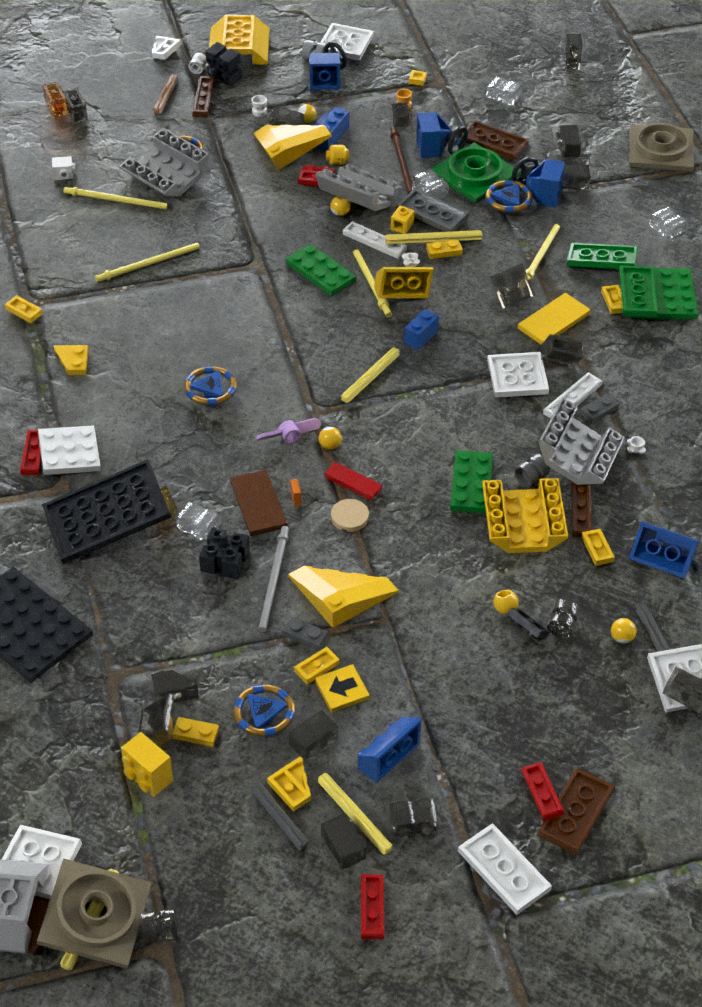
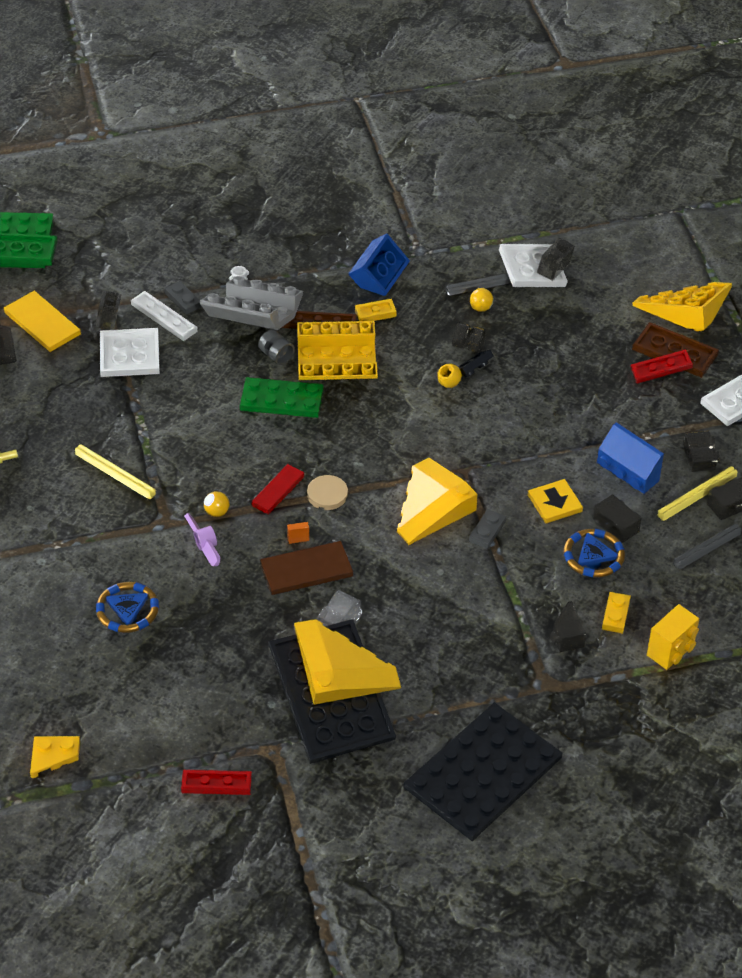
camera: 90 degrees left, 0 degrees up
(69, 450) = (219, 743): white plate -> none
(118, 505) = (340, 668): none -> yellow slope
(158, 722) = (626, 626): clear smoke slope -> none
(224, 553) = (387, 589): black brick -> none
(282, 539) = (361, 545): light grey bar -> none
(291, 784) = (673, 536): yellow wing -> none
(316, 665) = (531, 517): yellow plate -> none
(421, 329) = (51, 422): blue brick -> none
(612, 298) = (19, 272): yellow plate -> none
(648, 828) = (689, 307): none -> yellow slope

